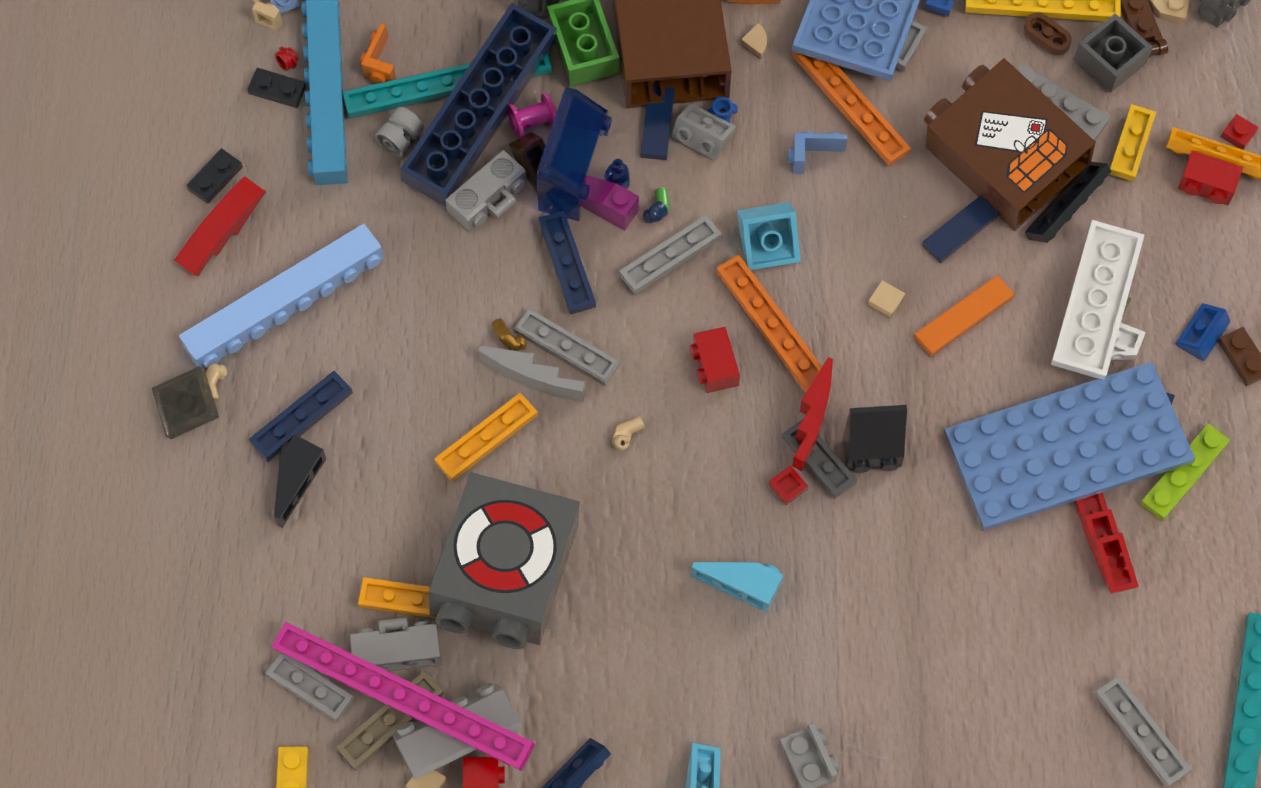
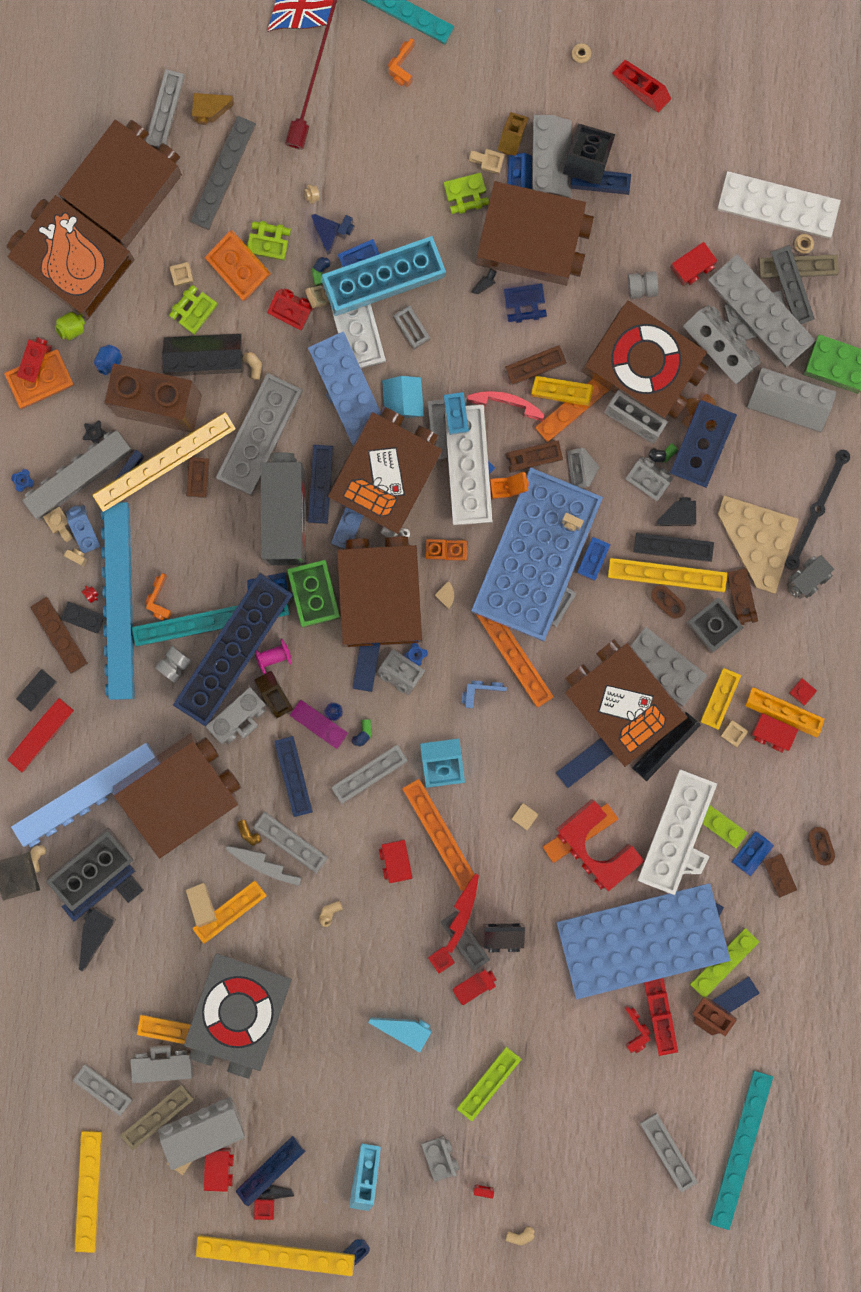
camera: 10 degrees right, 20 degrees up
(245, 109) = (59, 635): none -> reddish brown plate
(287, 384) = (89, 869): none -> dark grey slope
(345, 414) = (129, 889): none -> black plate
(404, 696) = (164, 1111): dark pink plate -> none
(409, 277) = (177, 794): none -> reddish brown brick
(446, 428) = (201, 905): none -> tan tile
(569, 154) = (300, 696): clear blue windscreen -> none
(840, 516) = (475, 986): none -> red bracket
(871, 649) = (489, 1083): none -> lime plate
(1003, 358) = (607, 872): none -> red arch
(1082, 562) = (638, 1042): none -> red bracket
(1156, 183) = (734, 733): none -> tan plate
(1158, 299) = (723, 827): none -> lime plate
(1180, 540) = (713, 1017): none -> copper slope
(1199, 521) = (737, 995): none -> dark blue tile

